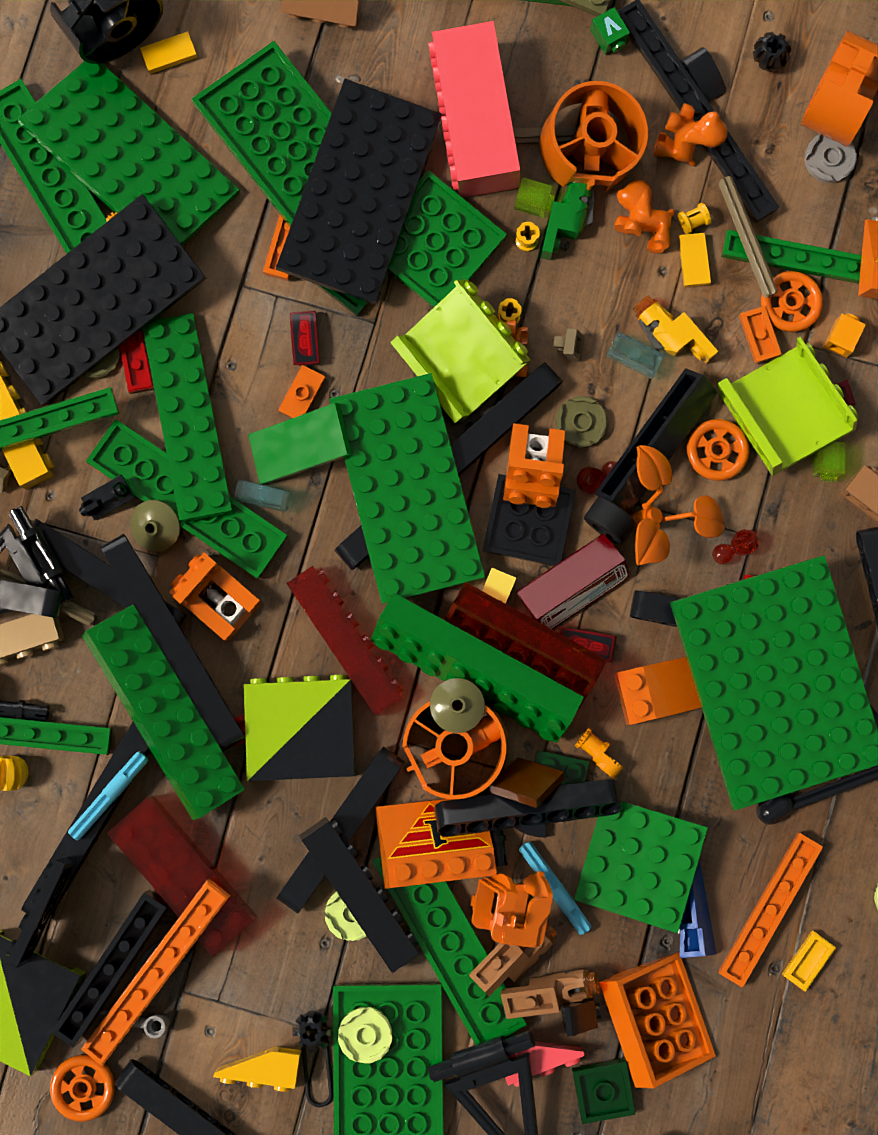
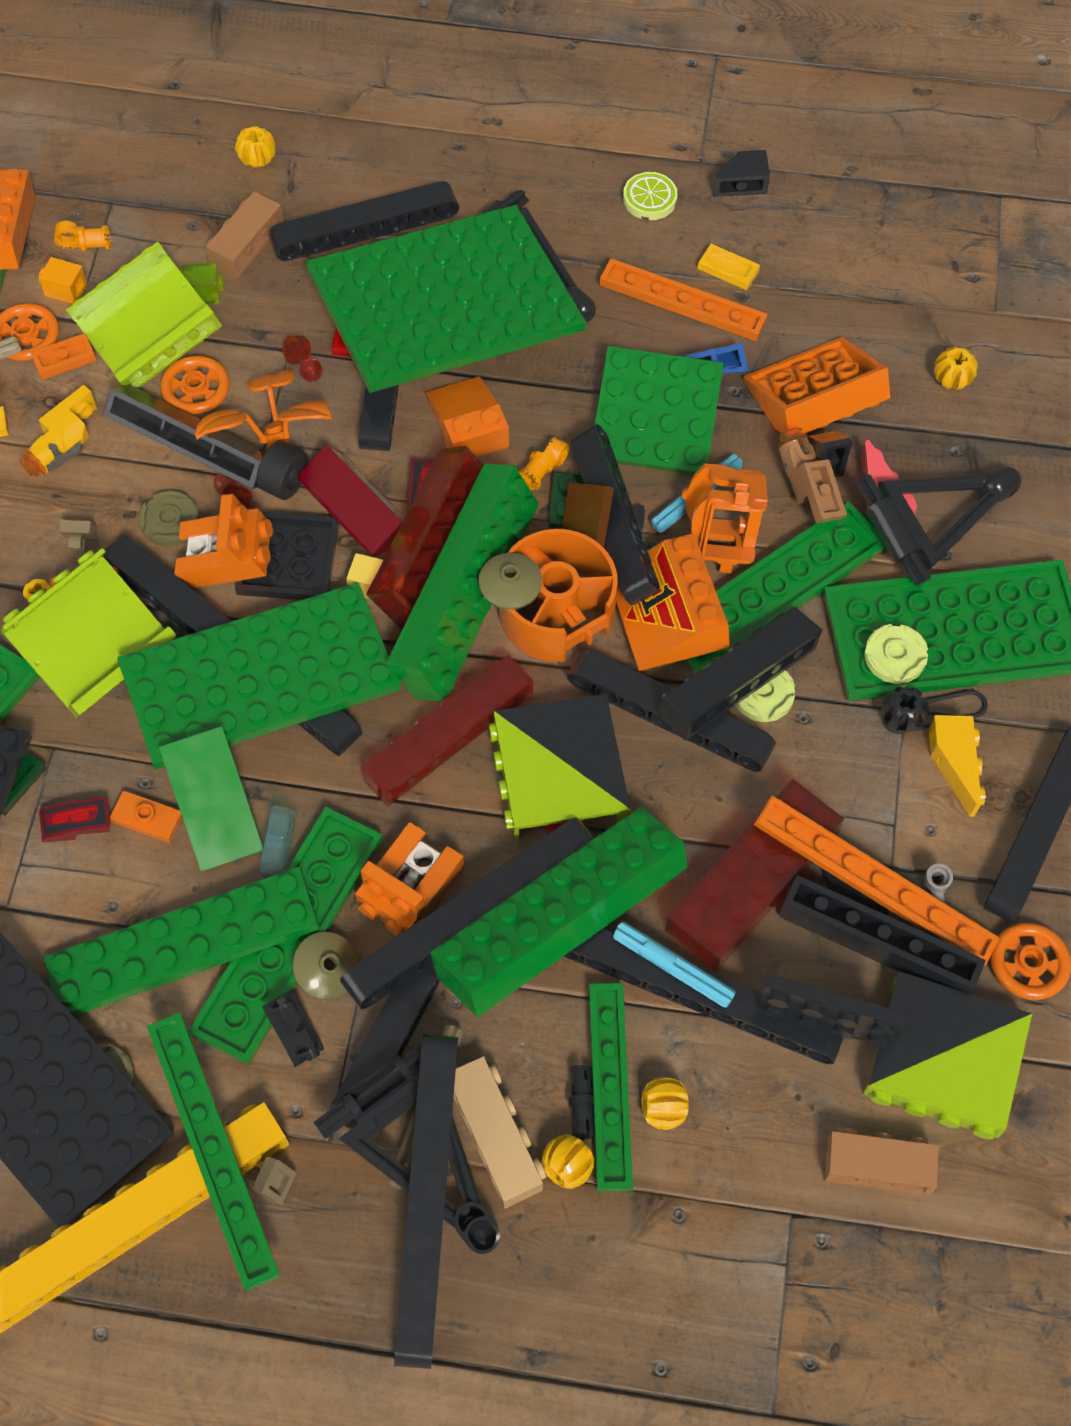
camera: 100 degrees left, 20 degrees down
(136, 364) = (116, 1019): red tile -> none
(509, 962) = (791, 523): medium nougat plate -> none
(603, 1091) = (901, 428): dark green plate -> none
(635, 355) = (89, 470): clear light blue brick -> none

